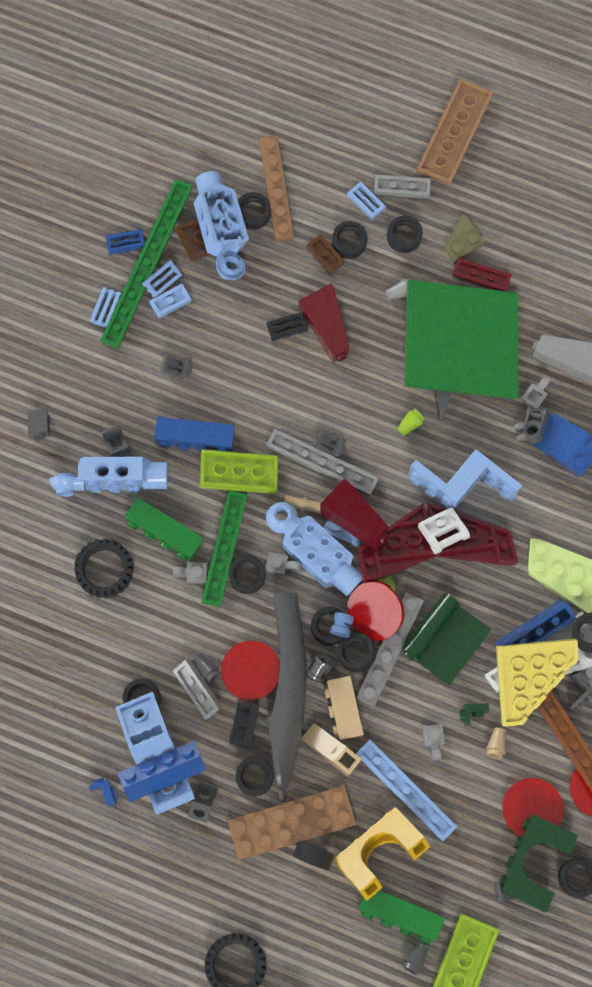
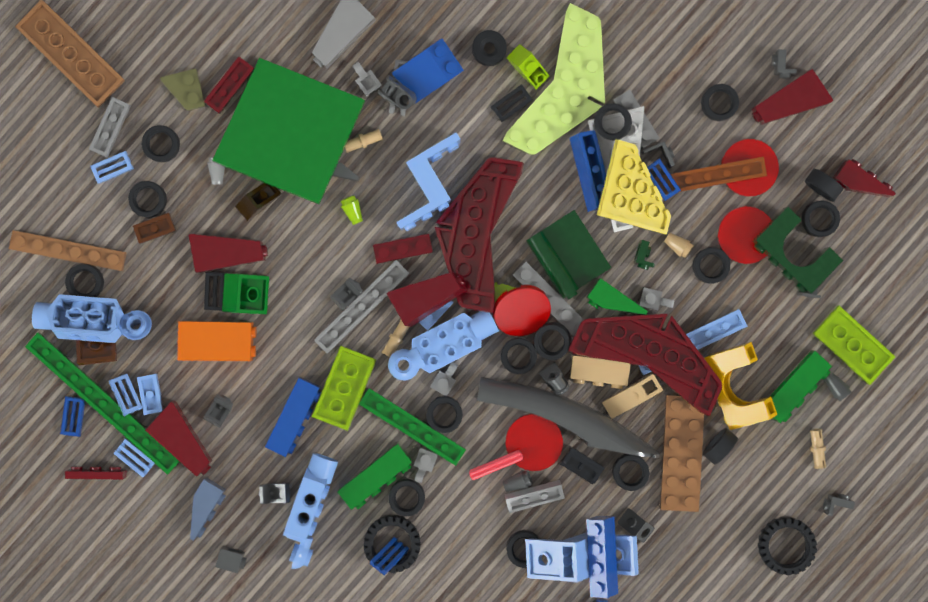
camera: 75 degrees left, 15 degrees up
(80, 277) = (96, 472): none -> dark red plate
(82, 382) = (204, 502): none -> sand blue slope
(93, 565) = (398, 546): none -> blue tile
(137, 341) = (179, 438): none -> dark red slope
(153, 581) = (392, 497): none -> black tyre
(215, 640) = (496, 464): none -> coral axle
(241, 340) = (216, 341): none -> orange slope
(295, 353) = (245, 293): none -> green slope
(342, 625) = (525, 346): medium blue wheel -> none
(346, 961) = (818, 449): none -> tan pin
(386, 334) = (257, 200): none -> dark brown slope
(387, 740) = (643, 343): none -> dark red wing
(391, 482) = (402, 248): none -> dark red plate
(418, 694) = (608, 297): none -> green slope
(440, 525) = (463, 220): white plate -> none
(478, 410) = (363, 140): none -> tan pin
(504, 783) = (725, 269): none -> black tyre
(544, 716) = (671, 193): none -> blue tile
(586, 538) = (524, 94): none -> black tile

